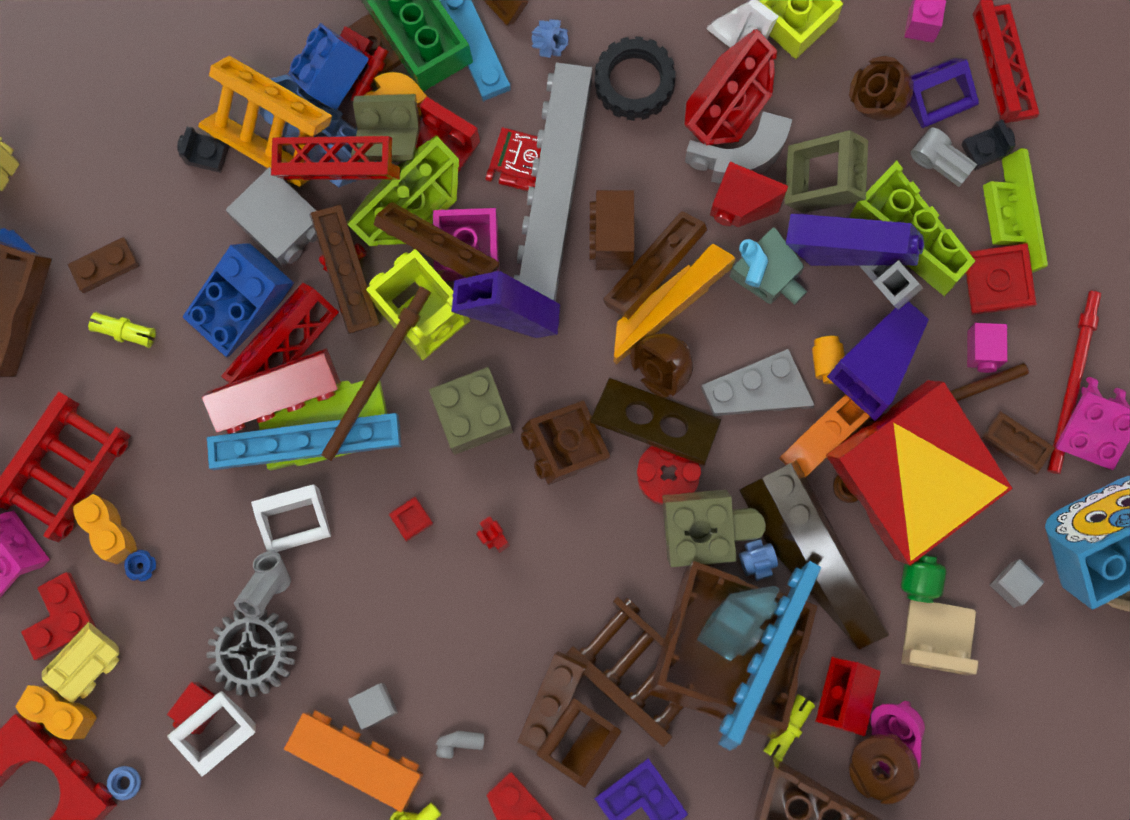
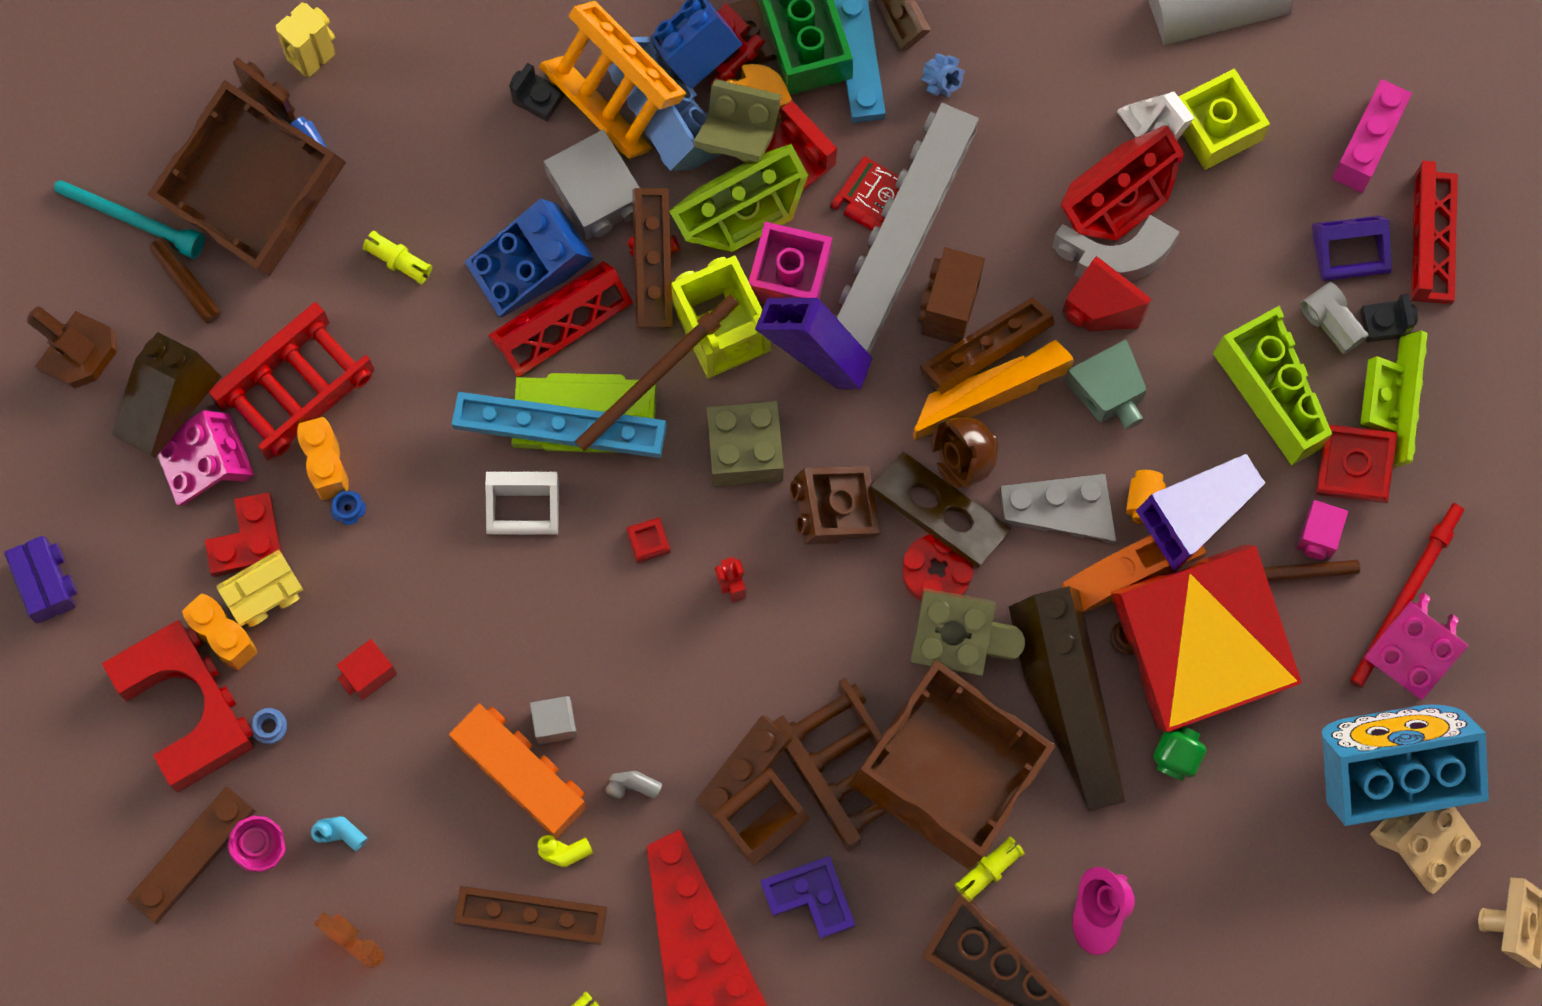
camera: 10 degrees right, 5 degrees down
(103, 265) = (395, 184): reddish brown plate -> none
(223, 745) = (387, 714): white tile -> none
(253, 666) = (456, 632): light grey gear -> none
(269, 579) = (479, 559): light grey piece -> none
(272, 391) = (541, 362): brick -> none
(334, 170) = (671, 151): red fence -> none
(434, 242) = (755, 252): reddish brown plate -> none
(637, 49) = (1023, 110): black tyre -> none
(738, 621) = (966, 733): clear light blue slope -> none
(755, 259) = (1095, 367): medium azure arm -> none
(758, 559) = (1007, 683): medium blue gear -> none
(763, 664) = (975, 781): dark azure plate -> none
(848, 696) = (1061, 850): red brick -> none
(850, 177) = (1218, 316): olive window -> none
(853, 241) = (1204, 376): dark purple slope -> none
(882, 89) = (1287, 226): reddish brown cylinder -> none
(894, 282) = (1231, 415): light grey arch -> none
(896, 755) = (1097, 932): reddish brown plate -> none
(939, 637) = (1179, 820): tan bracket -> none
(1017, 443) = (1325, 641): reddish brown plate -> none
(1017, 583) = (1279, 786): light grey piece -> none

